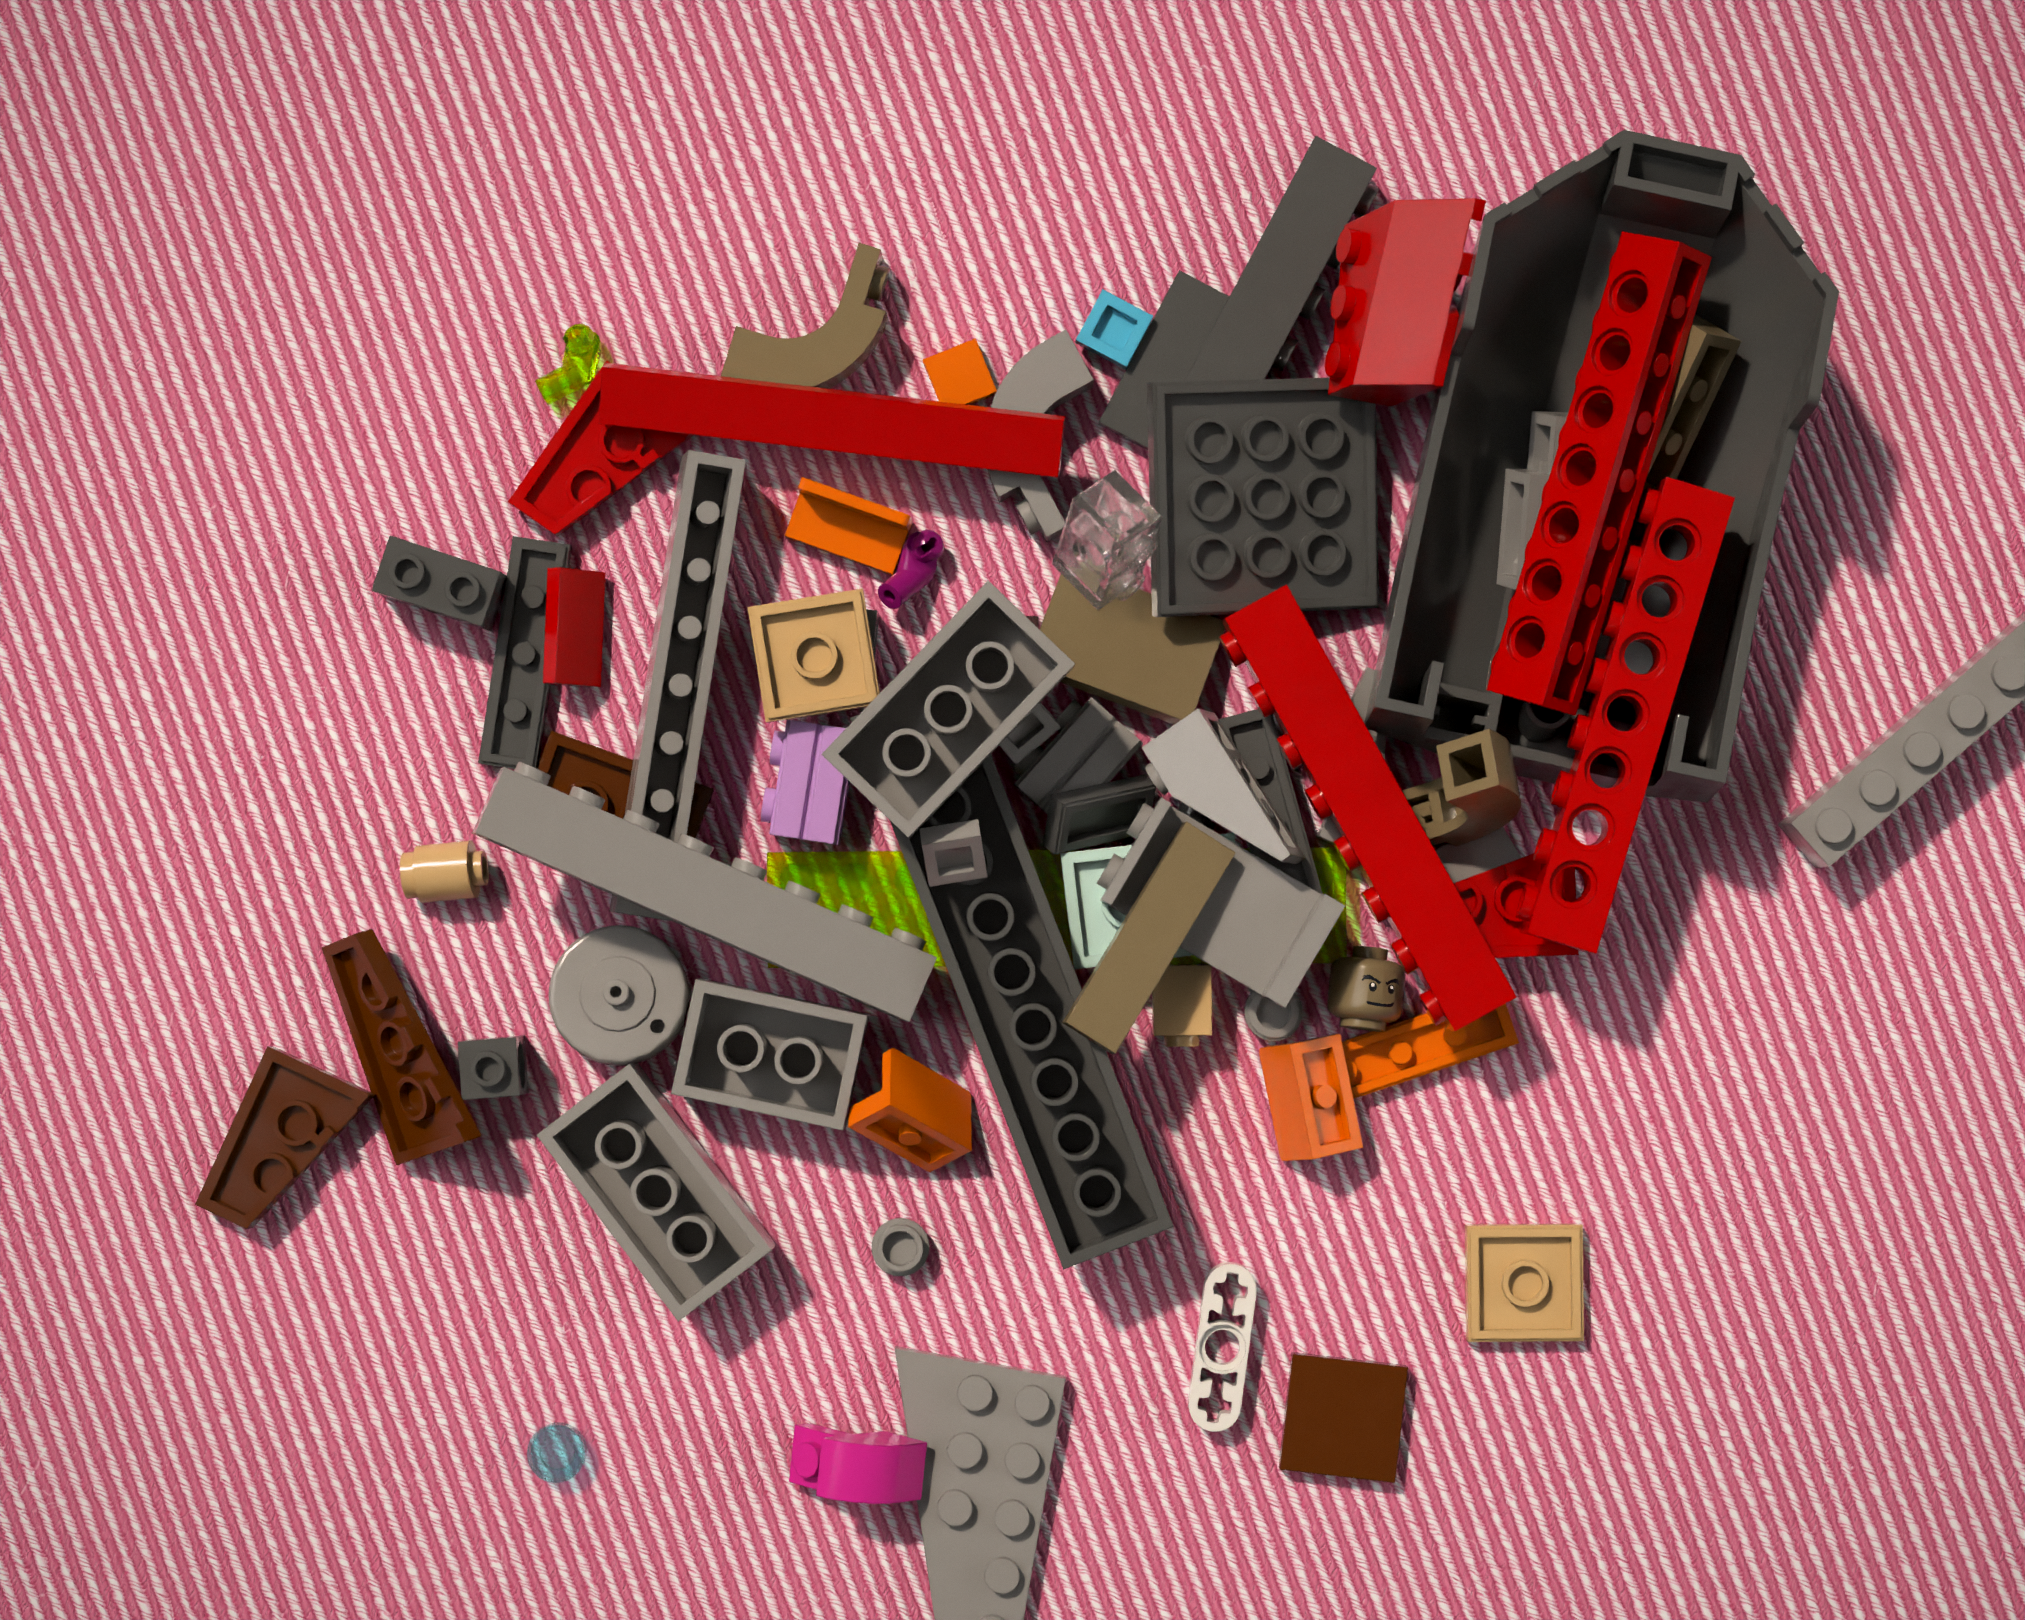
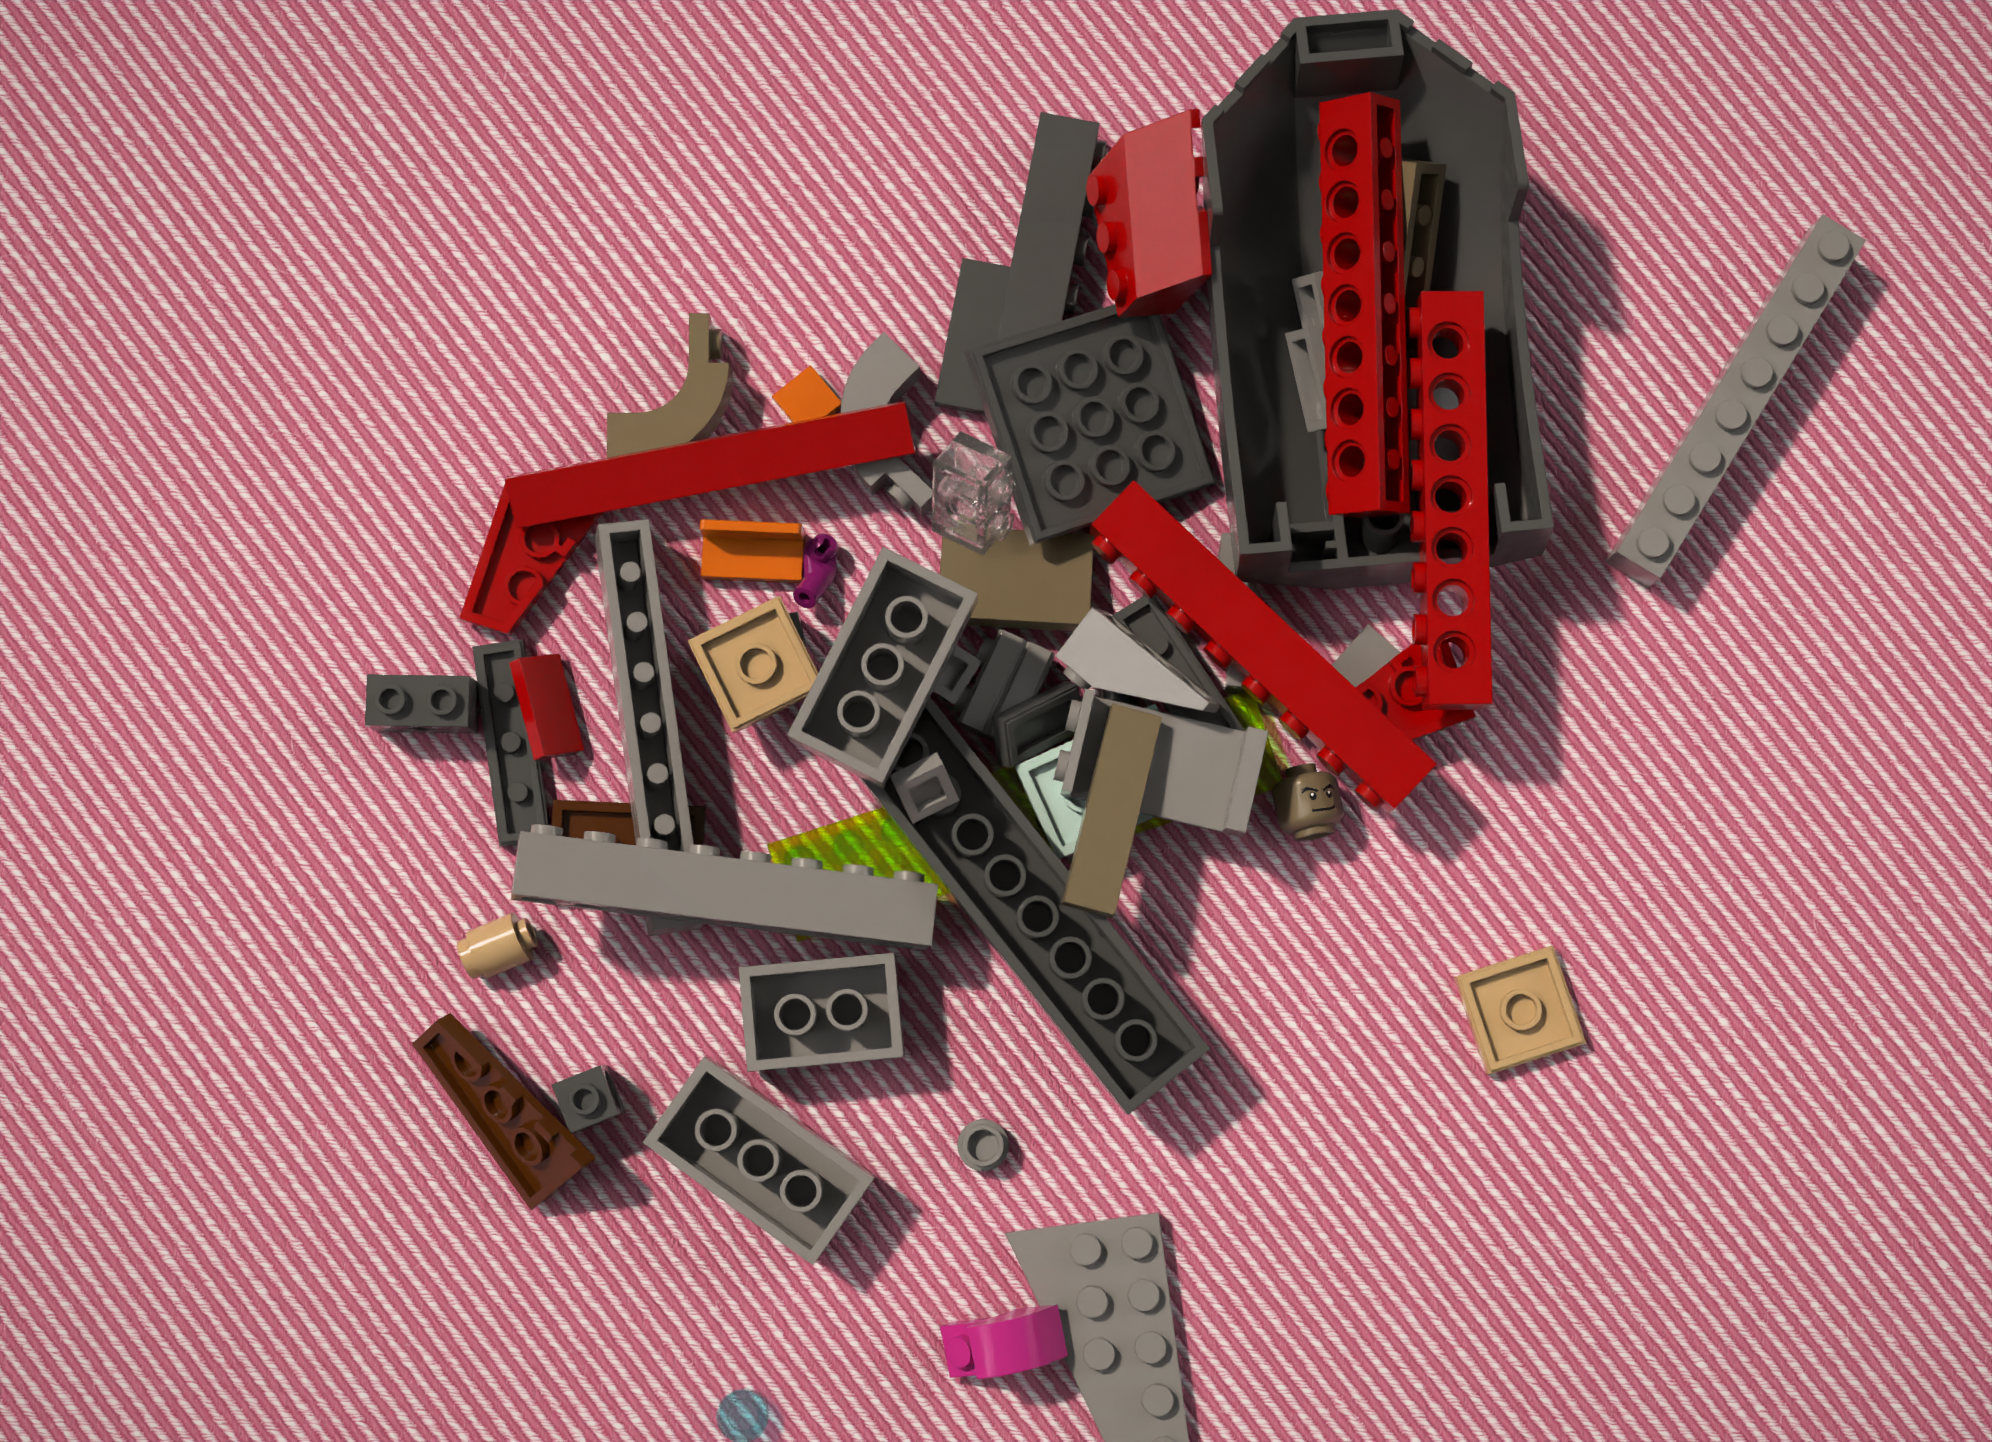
camera: 25 degrees left, 5 degrees down
(277, 1134) = (420, 1215): reddish brown wing -> none
(578, 364) = (485, 489): clear neon green arm -> none
(619, 995) = (678, 1004): light grey wheel -> none
(809, 789) = (786, 778): lavender brick -> none
(915, 1113) = (960, 1025): orange panel -> none
(1114, 329) = (923, 322): medium azure plate -> none
(1183, 1005) = (1157, 863): tan brick -> none
(1202, 1387) = (1300, 1180): white beam -> none
(1269, 1019) = (1235, 853): light grey tile -> none
(1310, 1098) = (1289, 908): orange panel -> none
(1343, 1417) = (1404, 1172): reddish brown tile -> none
(1420, 1047) = (1348, 853): orange tile -> none
(1474, 792) = (1347, 604): dark tan arch -> none

